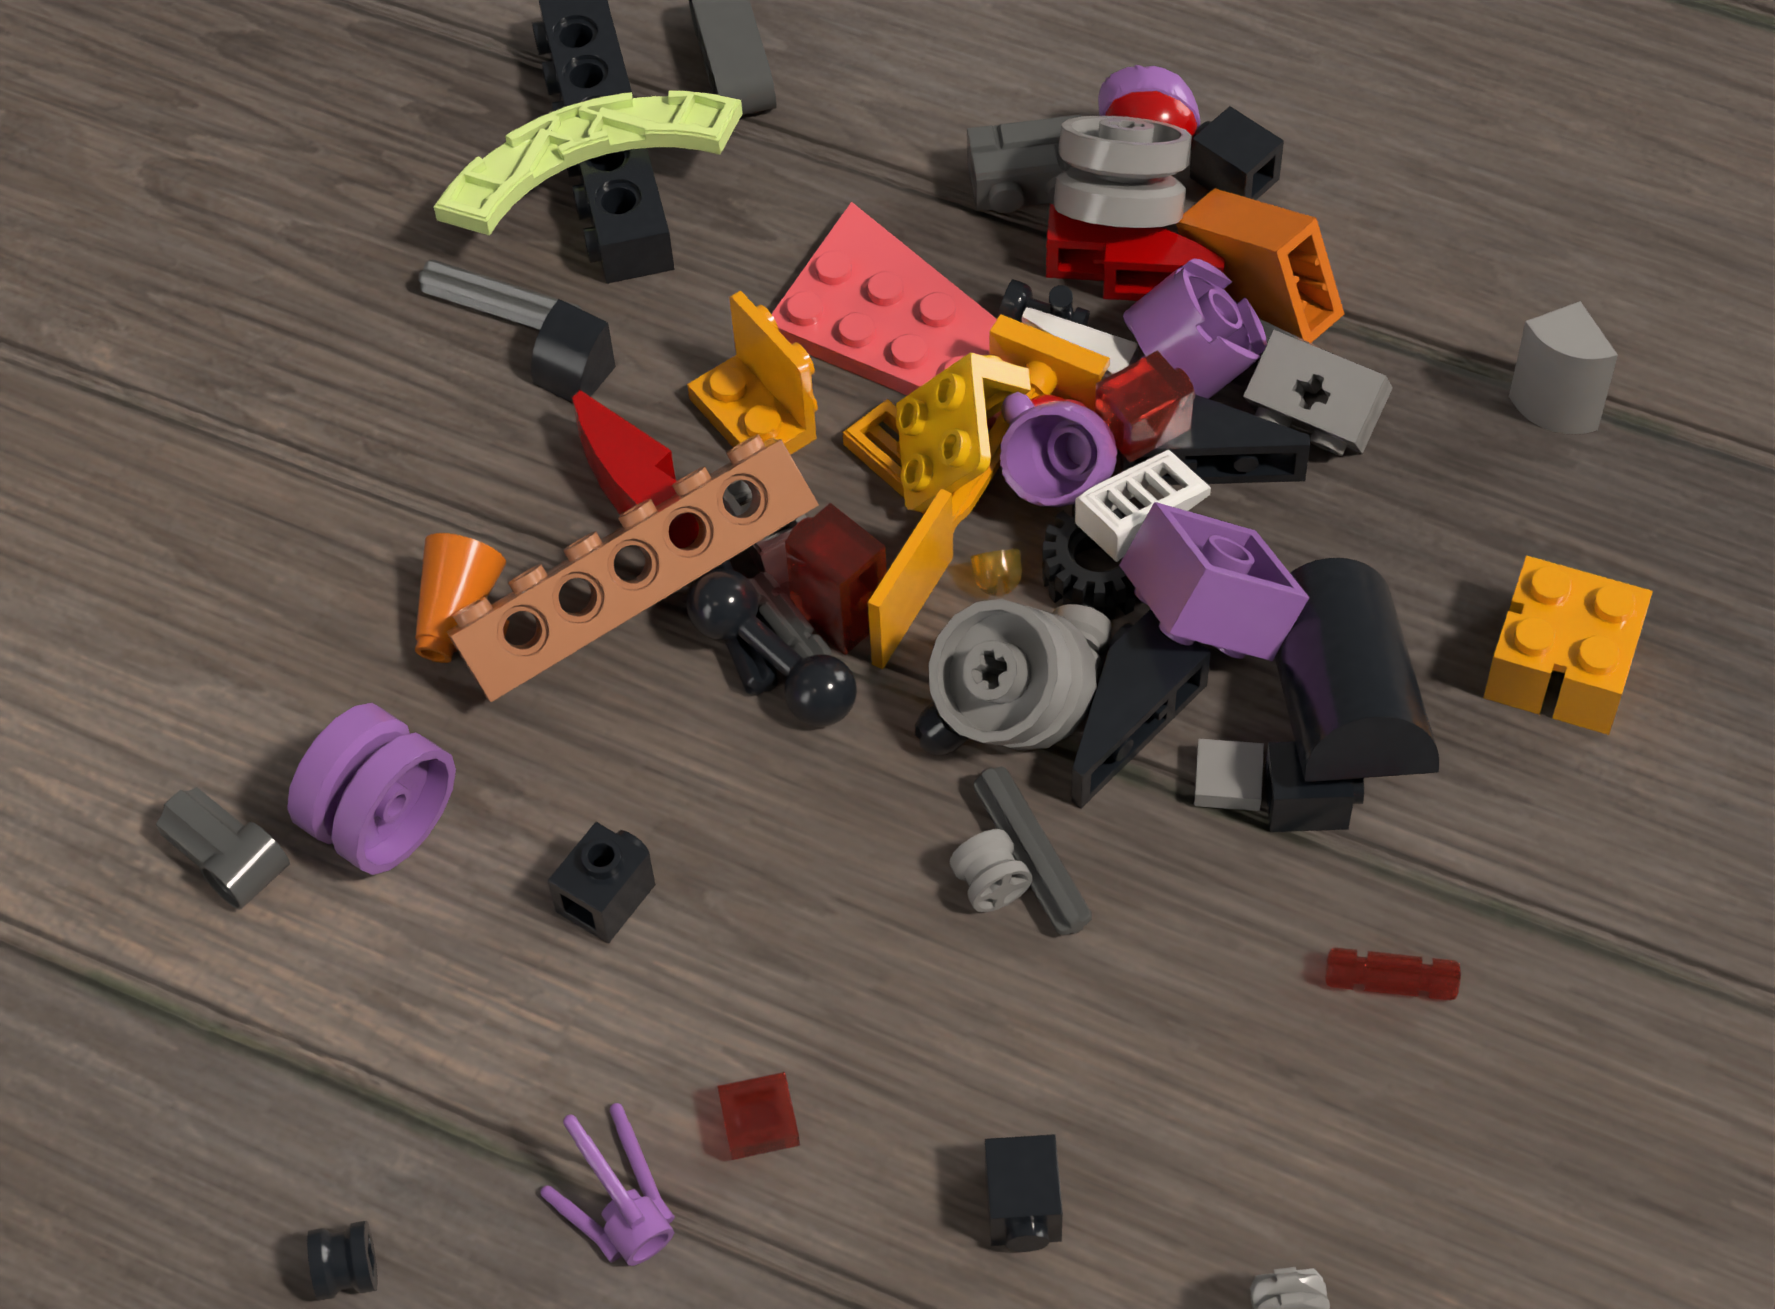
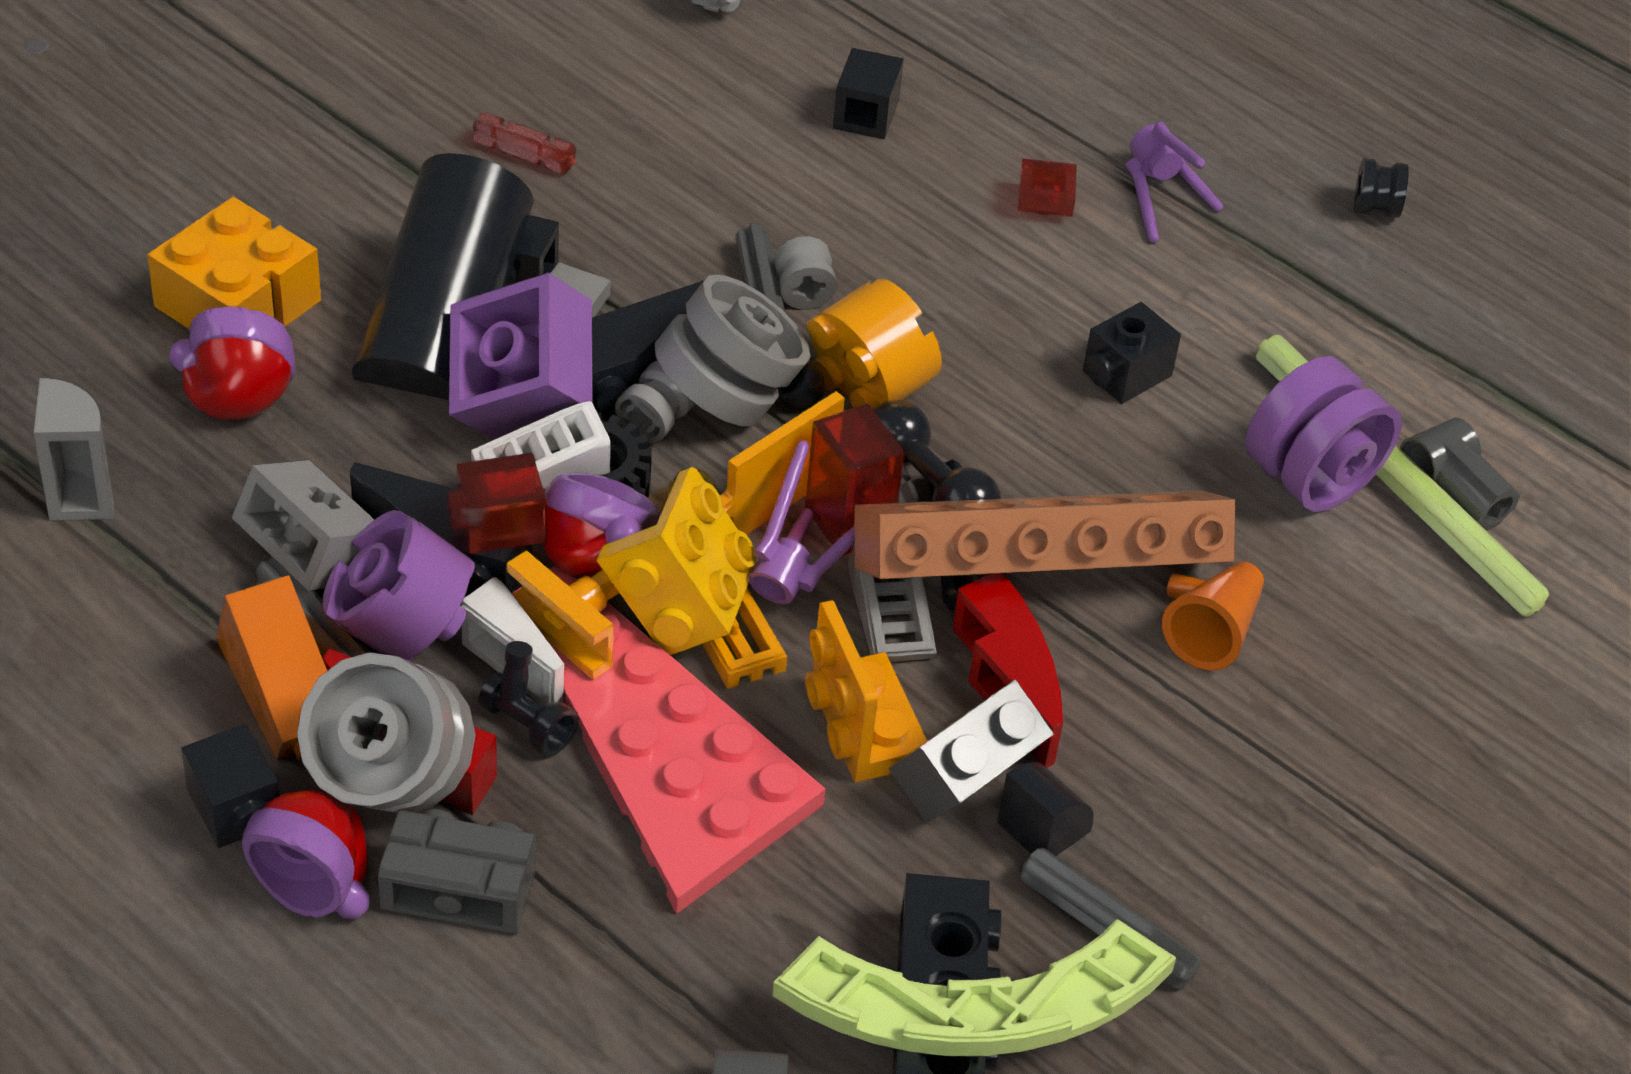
camera: 170 degrees left, 10 degrees down
(305, 853) = (1435, 507): none -> yellowish green axle
(649, 361) = (971, 751): none -> brick
(875, 500) = (783, 561): none -> medium lavender plant
(875, 753) = (874, 345): none -> light orange brick
(1509, 531) = (234, 362): none -> red piece

